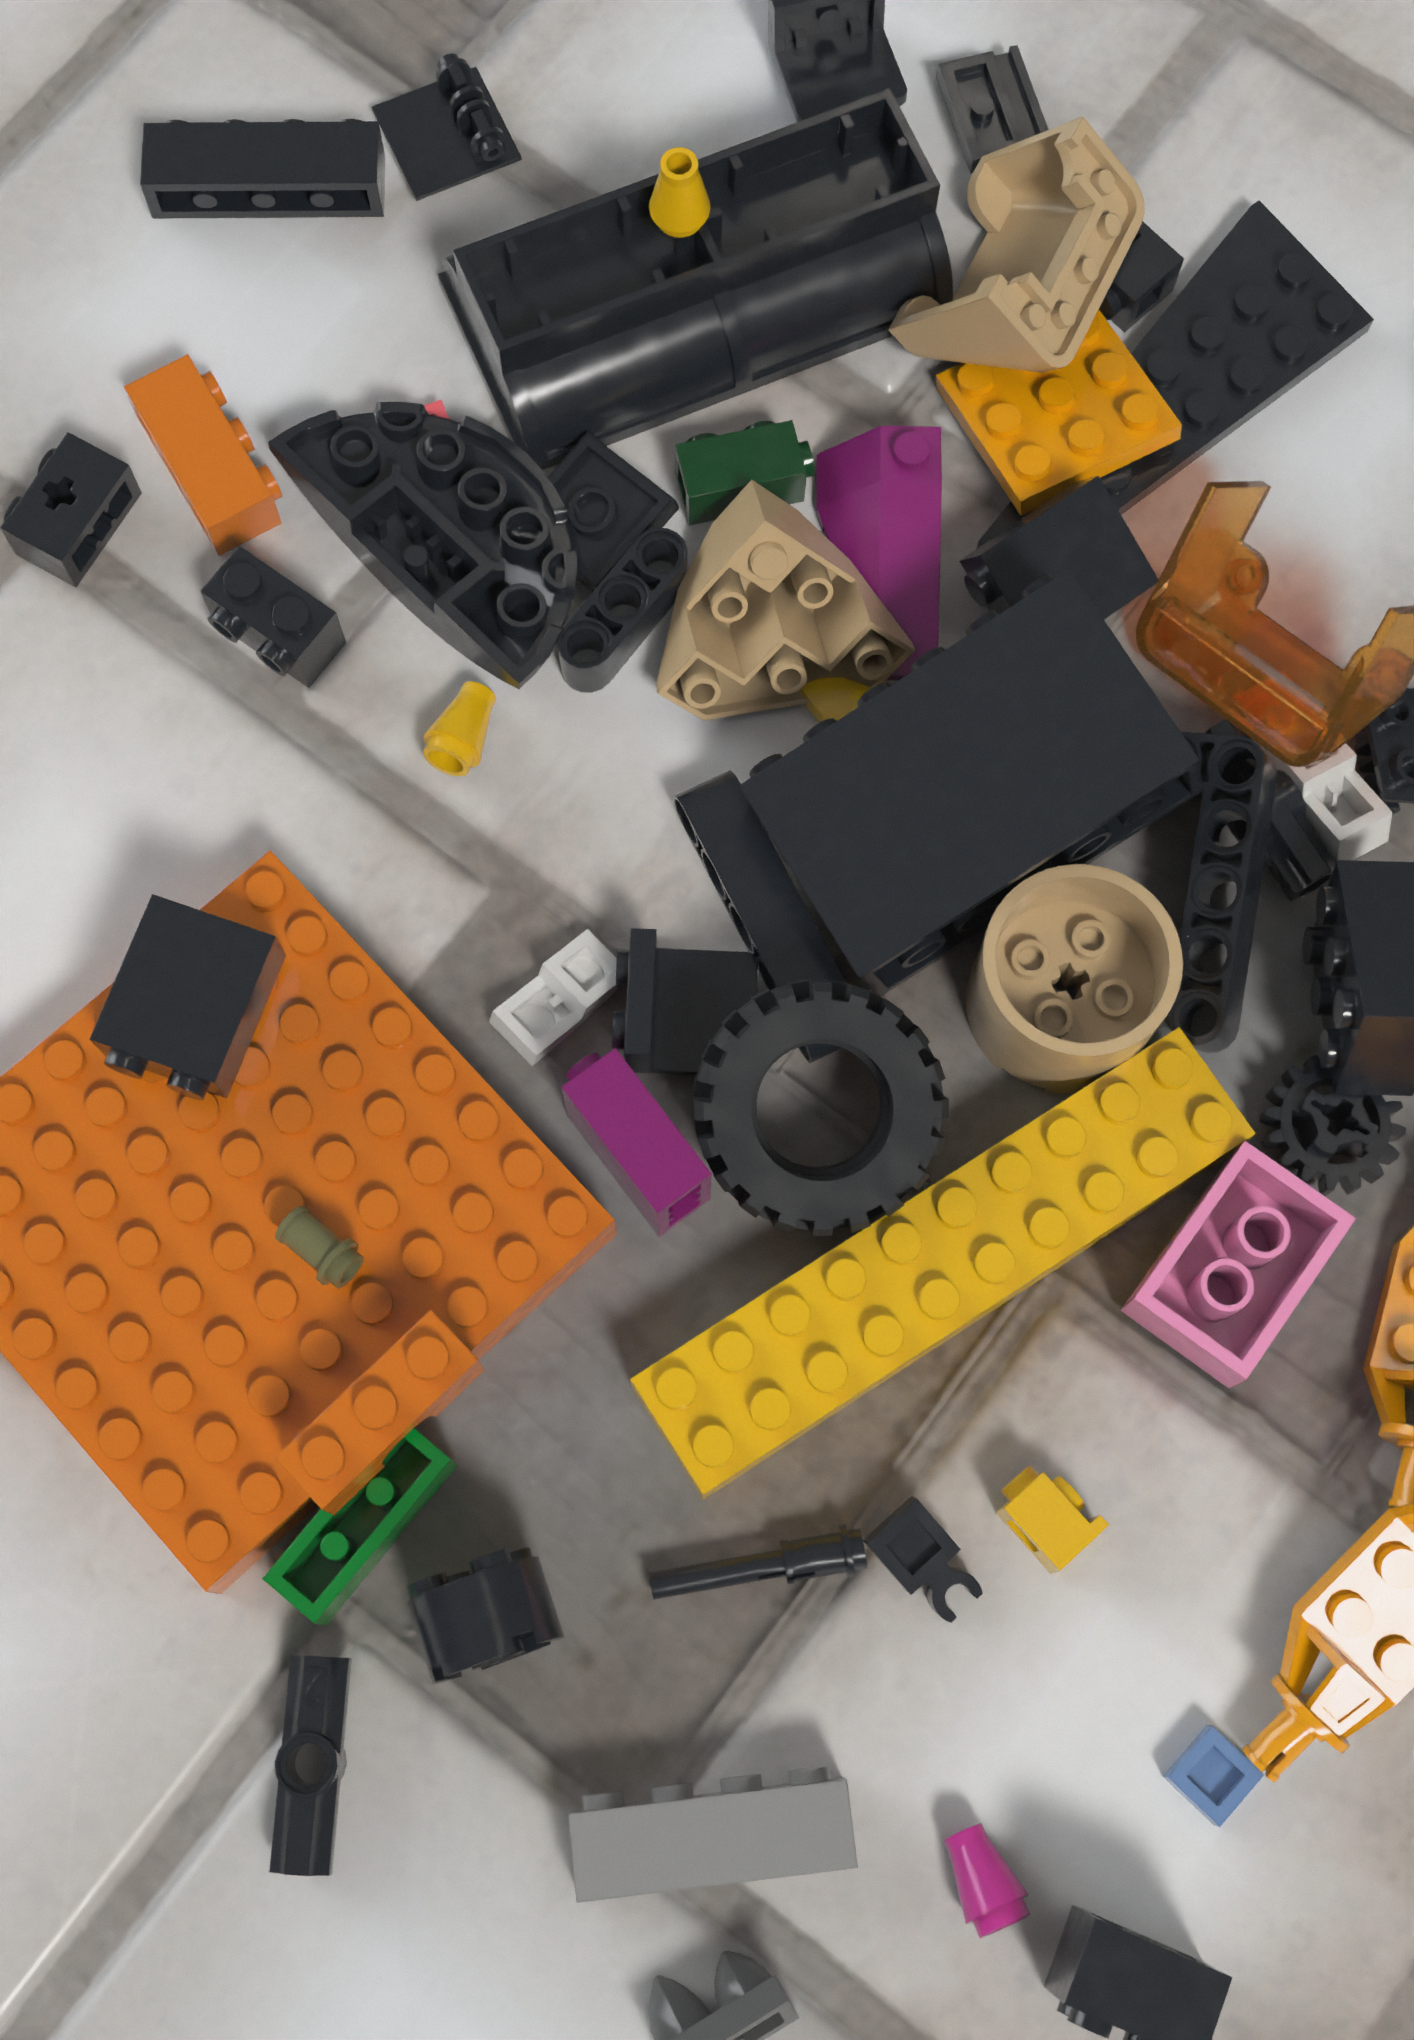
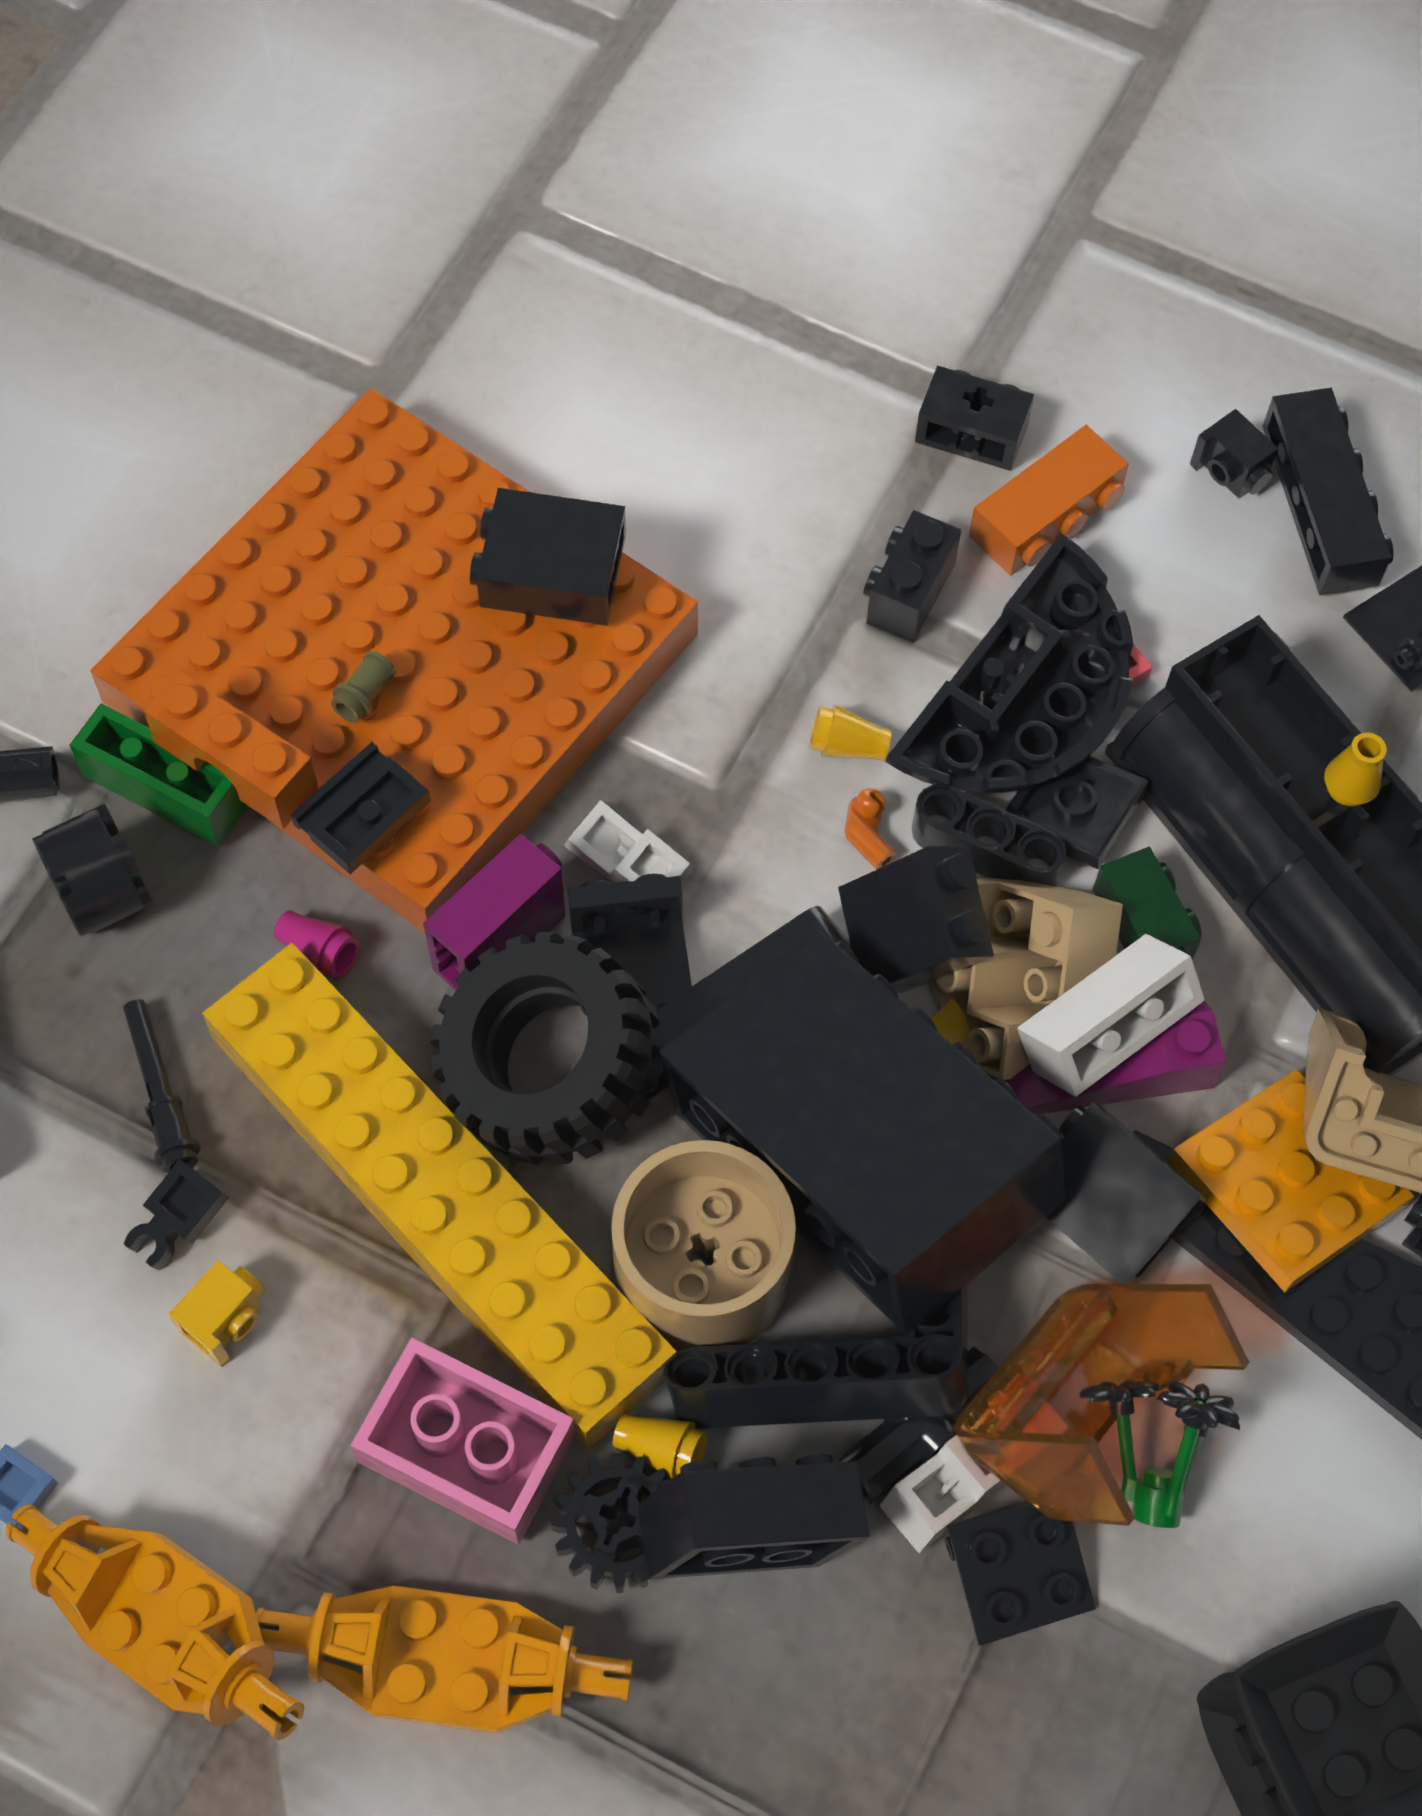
camera: 80 degrees right, 10 degrees down
(192, 248) = (1235, 454): none -> black brick
(486, 1268) = (361, 807): none -> black plate
(578, 739) = (863, 828): none -> orange arm
(612, 1359) = (323, 943): none -> dark pink cone
(733, 686) = (917, 917): none -> black brick
(875, 520) = (1111, 1014): none -> white brick
(1255, 1064) = (662, 1442): none -> yellow cone
(1358, 601) = (1161, 1492): none -> plant

